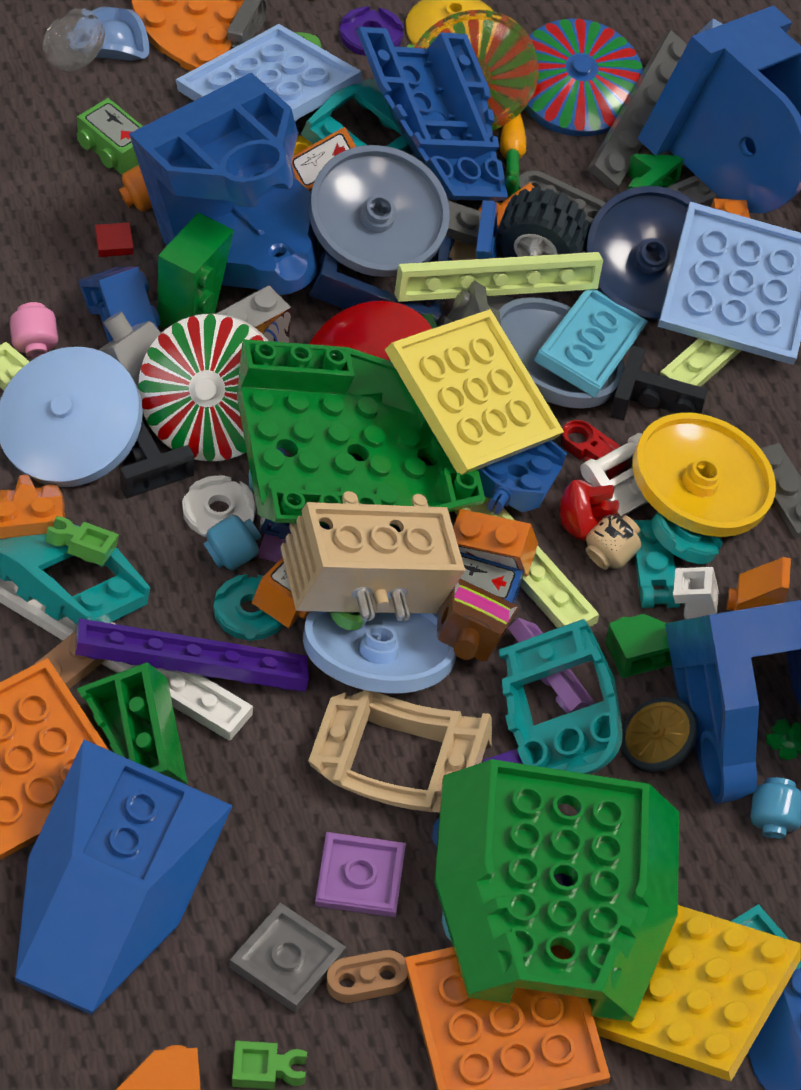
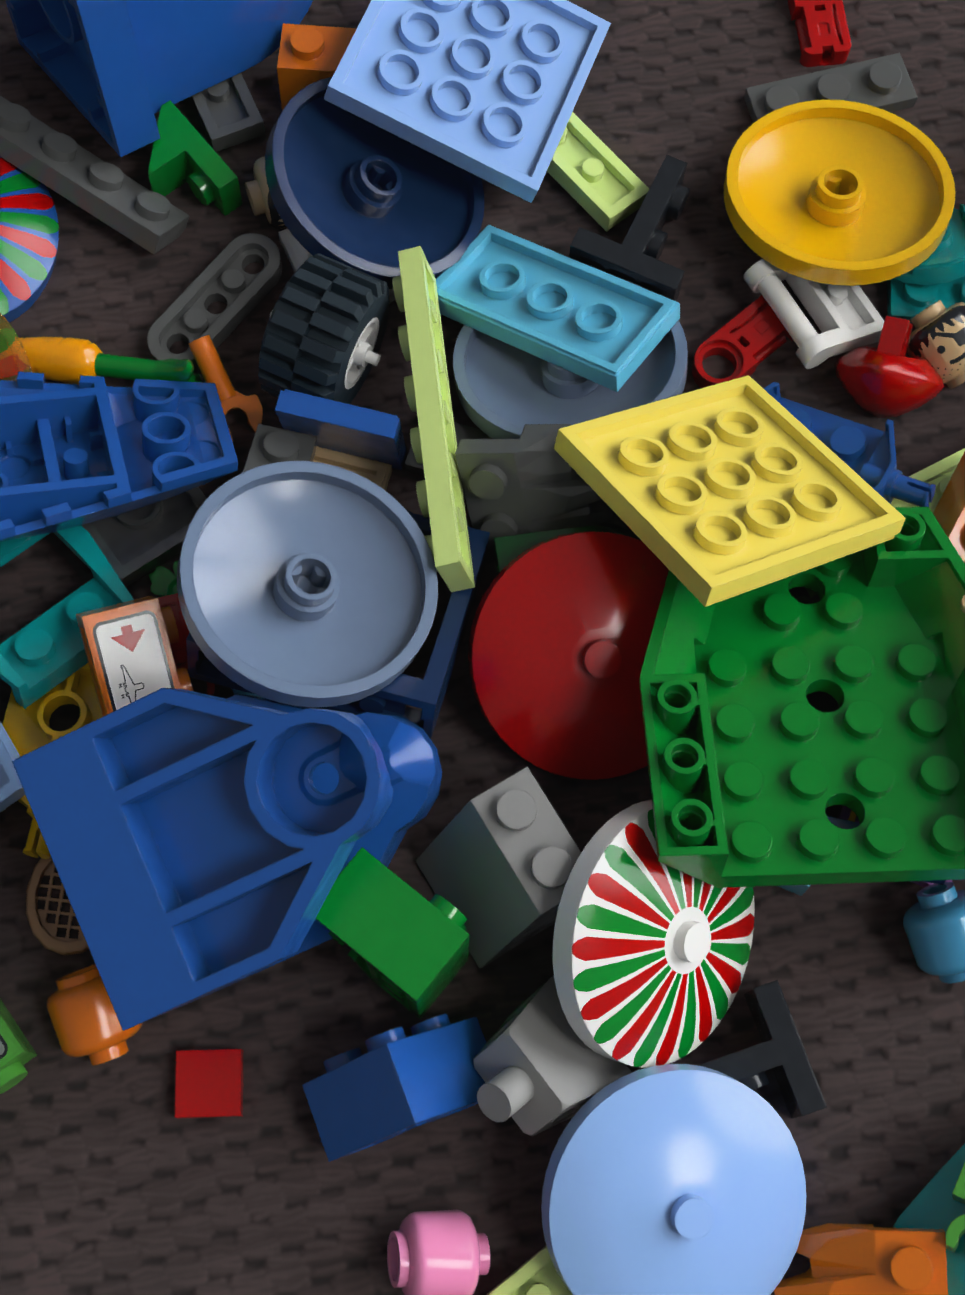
camera: 80 degrees left, 20 degrees up
(212, 489) = (813, 970): white tile -> none

